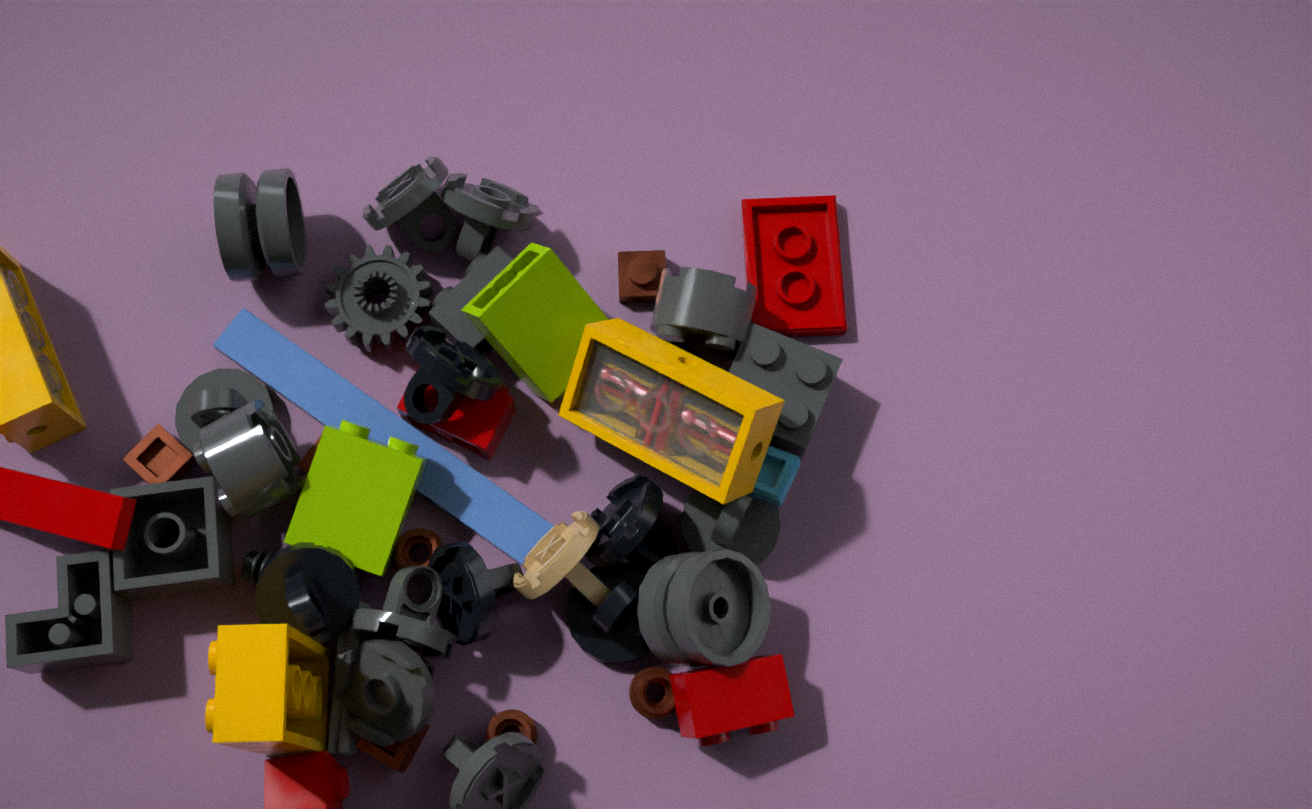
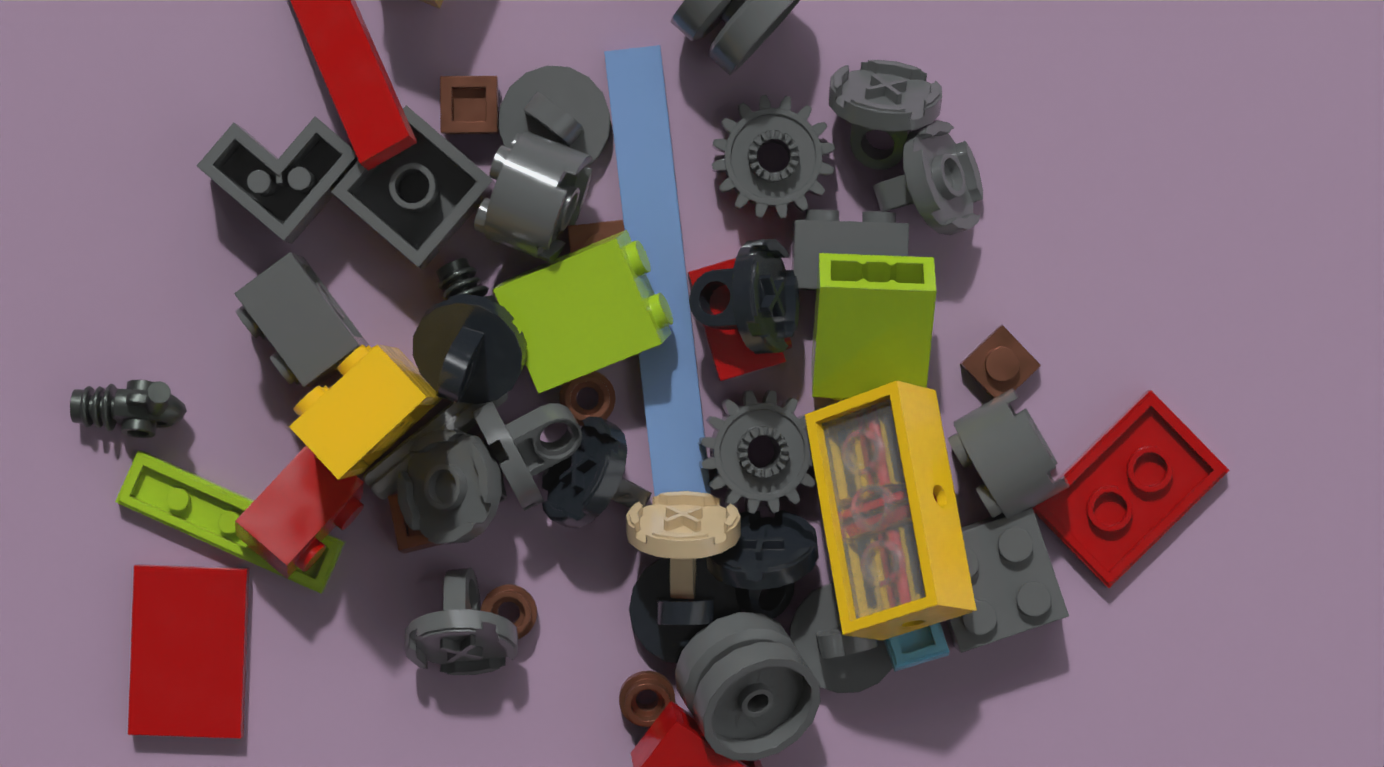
camera: 50 degrees right, 15 degrees up
(162, 692) = (299, 321): none -> dark grey brick
(554, 494) = (730, 446): none -> dark grey gear

